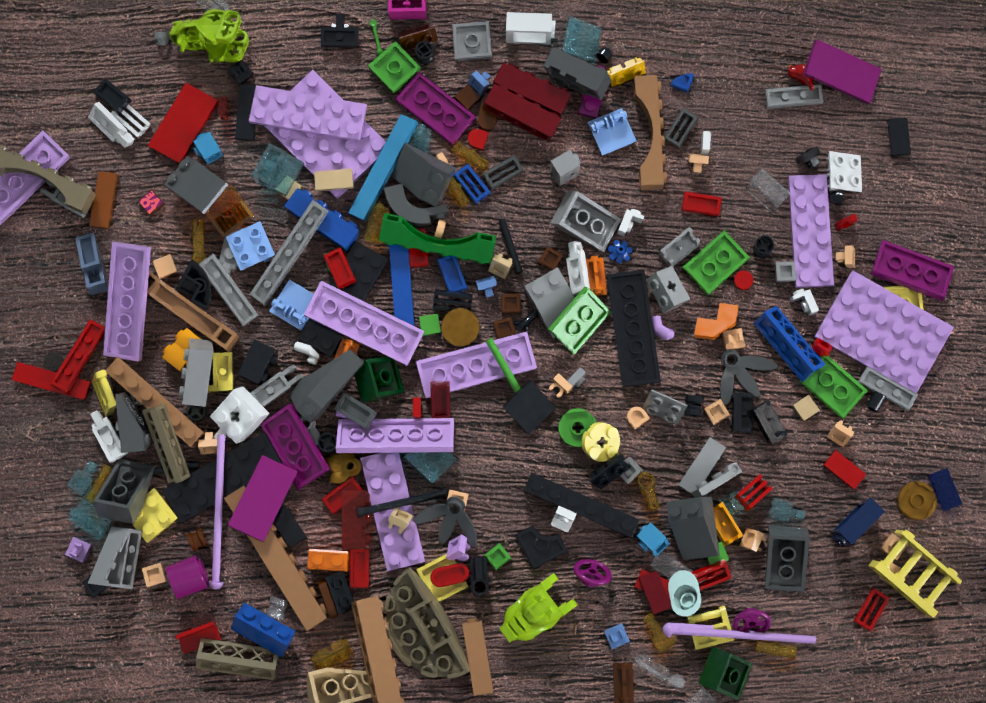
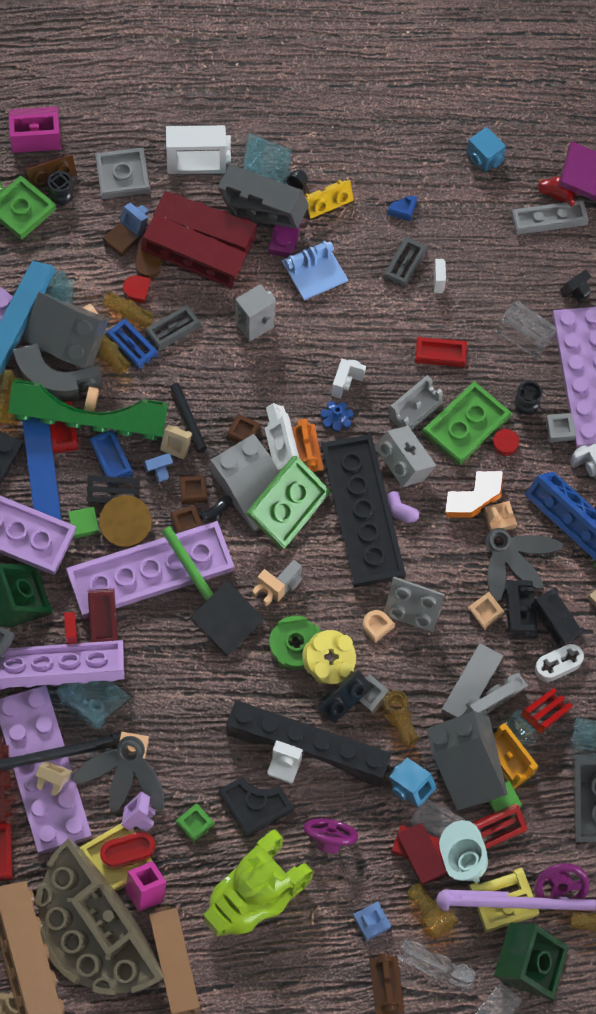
camera: 10 degrees left, 15 degrees down
(435, 109) = (79, 255): magenta tile -> none
(460, 603) = (145, 886): none -> dark pink brick
(479, 574) = (169, 850): black piece -> none
(585, 220) = (287, 378): light grey slope -> none
(646, 95) = (357, 225): medium nougat arch -> none
(694, 406) = (454, 604): black wheel -> none
(698, 160) = (431, 297): light nougat tile -> none
(750, 38) = (486, 149): none -> dark azure brick
(752, 540) = (551, 775): light nougat tile -> none
(768, 459) = (561, 668): none -> white beam

